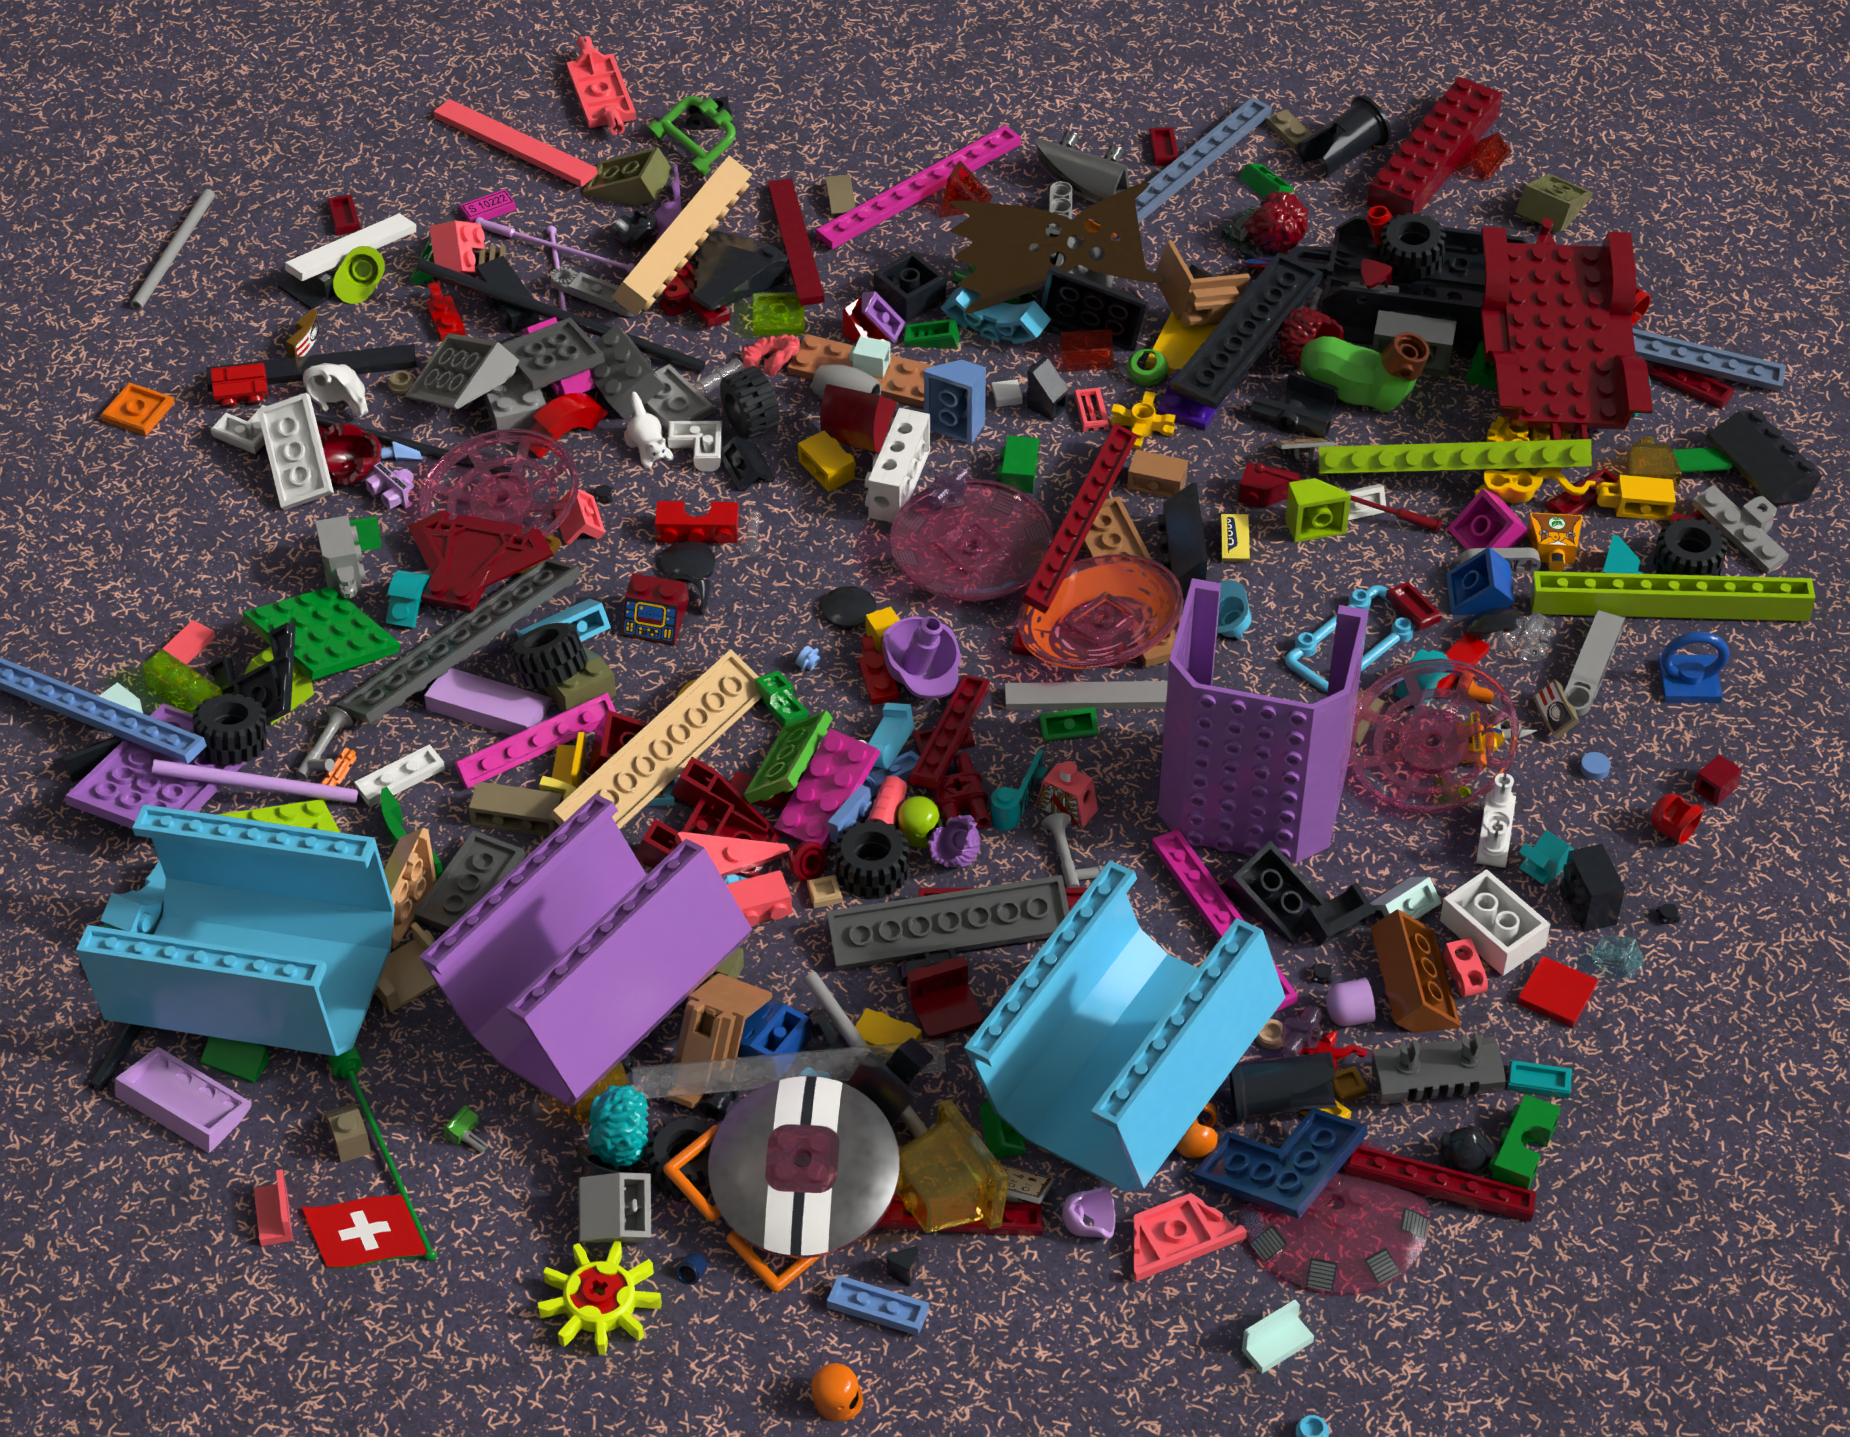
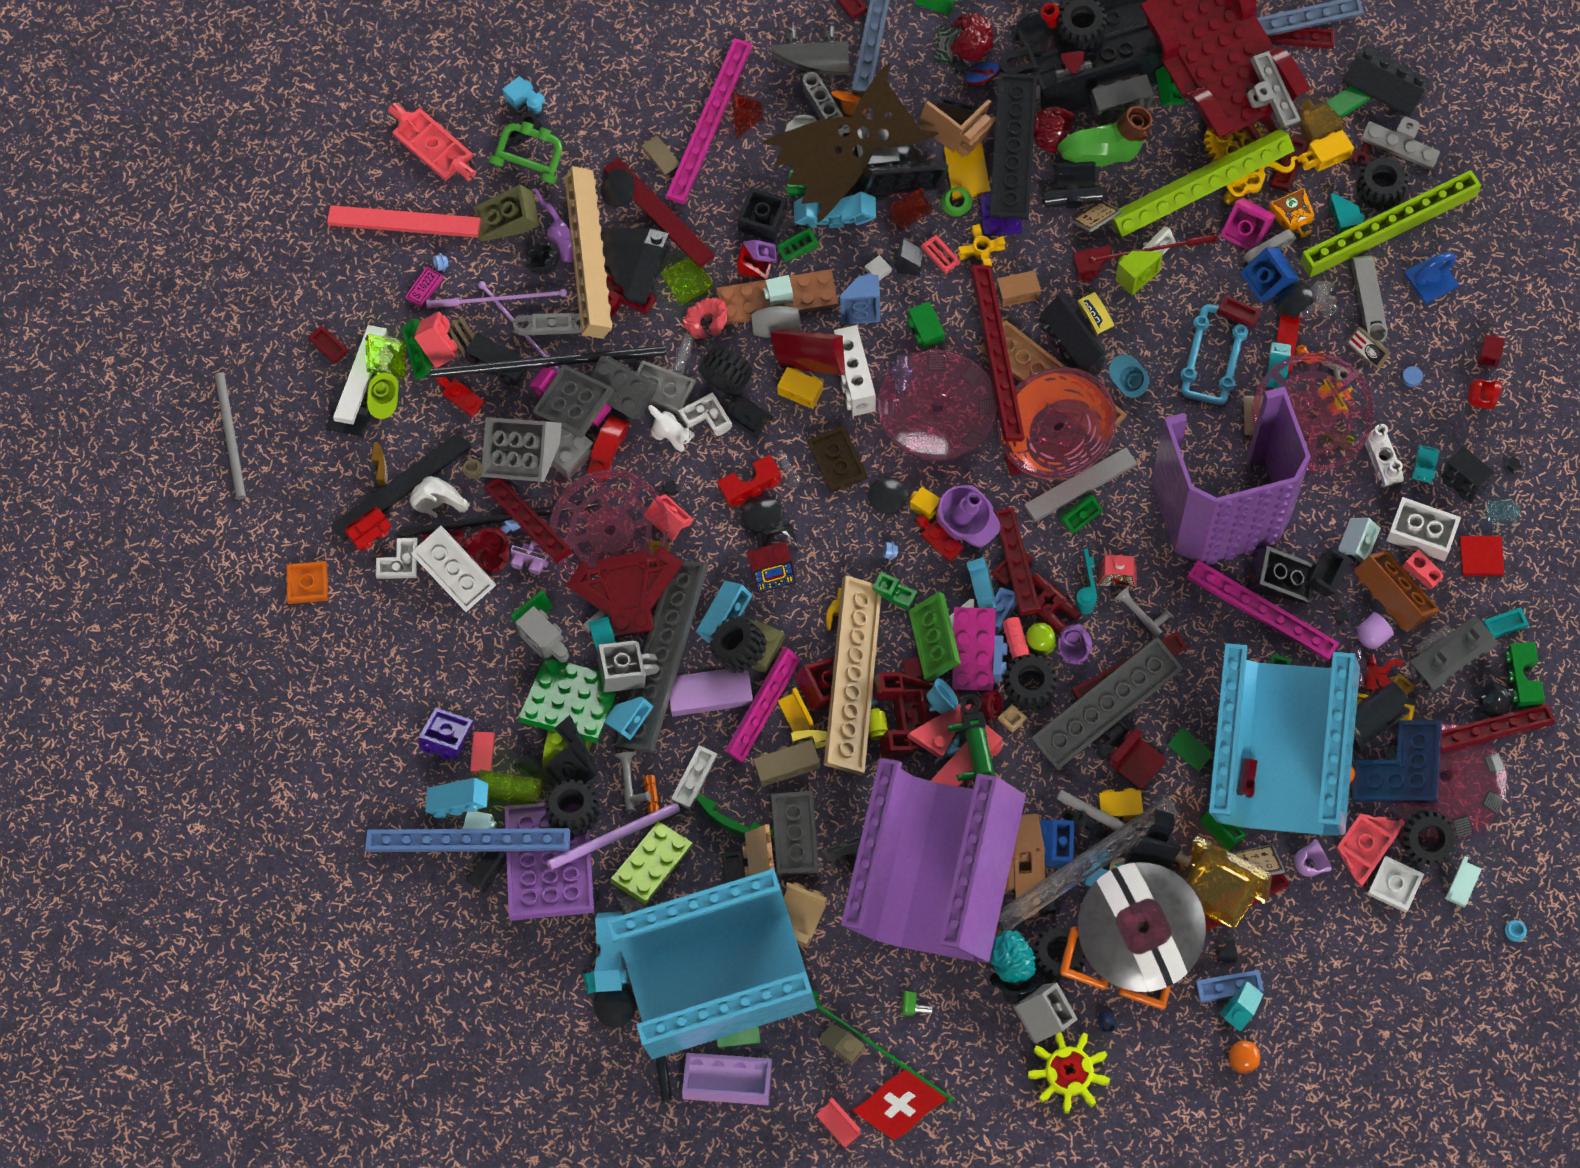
camera: 25 degrees left, 20 degrees up
(113, 662) = (456, 798): none -> medium azure brick
(157, 606) = (445, 734): none -> dark purple plate
(371, 673) = (629, 716): none -> medium azure slope
(394, 242) = (385, 355): none -> clear neon green plate
(404, 621) = (624, 666): none -> light grey hinge
(418, 449) = (527, 520): none -> dark red tile
(522, 192) = (440, 262): none -> light blue plate
(655, 809) = (877, 724): none -> neon yellow brick
(733, 83) = (520, 93): none -> medium azure brick
(749, 819) = (942, 697): none -> medium azure piece
(762, 865) = (975, 730): none -> green piece
(768, 201) = (618, 188): none -> black dish
(815, 546) = (837, 459): none -> dark brown plate
(874, 1329) = (1242, 1006): none -> teal slope
(1068, 1075) = (1247, 777): none -> dark red bar
(1183, 1297) = (1395, 884): none -> white plate
(1256, 1231) = (1446, 837): none -> black tyre
(1601, 392) = (1272, 90): none -> light grey plate

